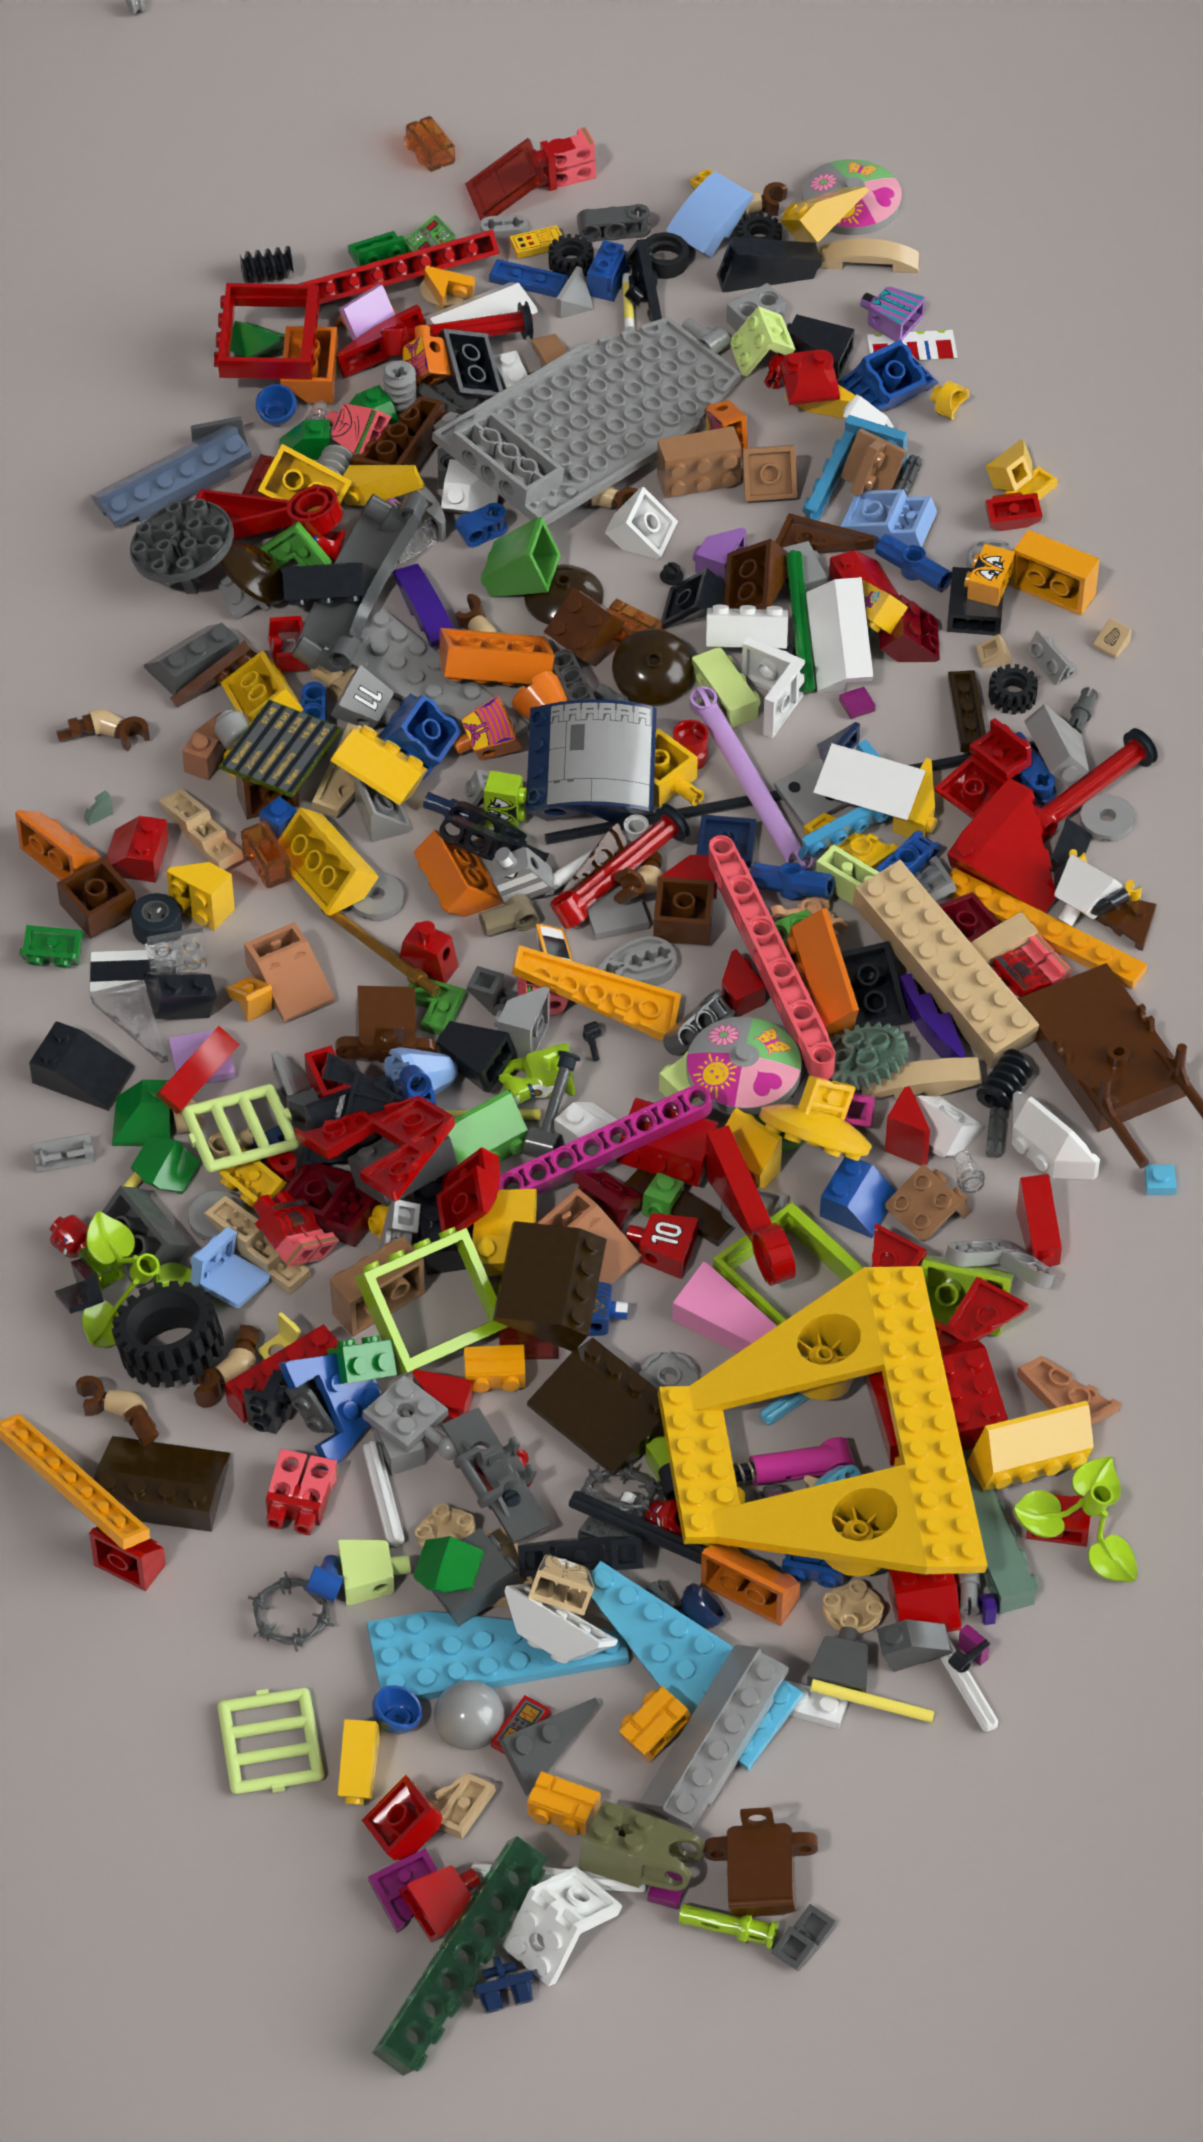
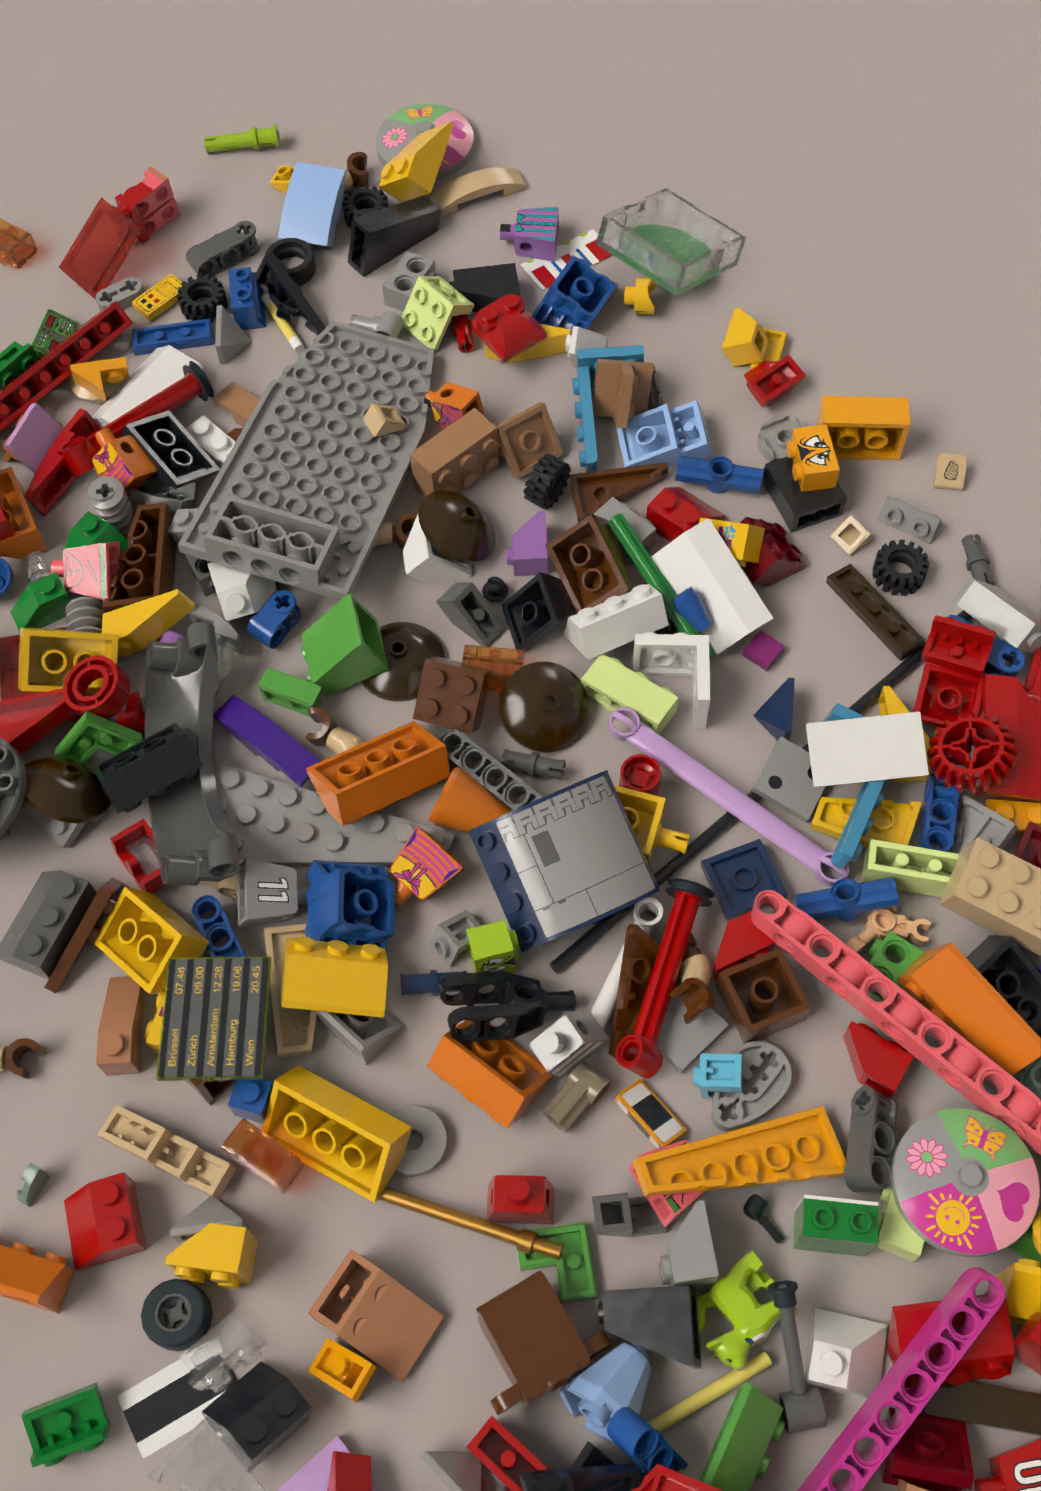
camera: 25 degrees left, 10 degrees up
(96, 897) = (89, 1325): reddish brown brick -> none
(230, 727) = (142, 1010): light grey head -> none
(461, 577) = (289, 691): none -> bright green slope
(618, 941) = (718, 1073): none -> medium azure bracket
(634, 1053) = (836, 1225): none -> green piece
(639, 581) = (471, 612): none -> dark grey slope
(657, 408) = (383, 420): none -> tan slope
(661, 1195) = (984, 1413): bright green bracket -> none
(667, 513) = (456, 527): none -> dark brown dish
(699, 136) = (253, 138): none -> lime pin
(763, 509) = (547, 481): none -> black tyre
(812, 643) = (691, 607): none -> blue cone
(951, 818) = (955, 743): none -> red gear
(1001, 363) = (670, 241): none -> clear tile

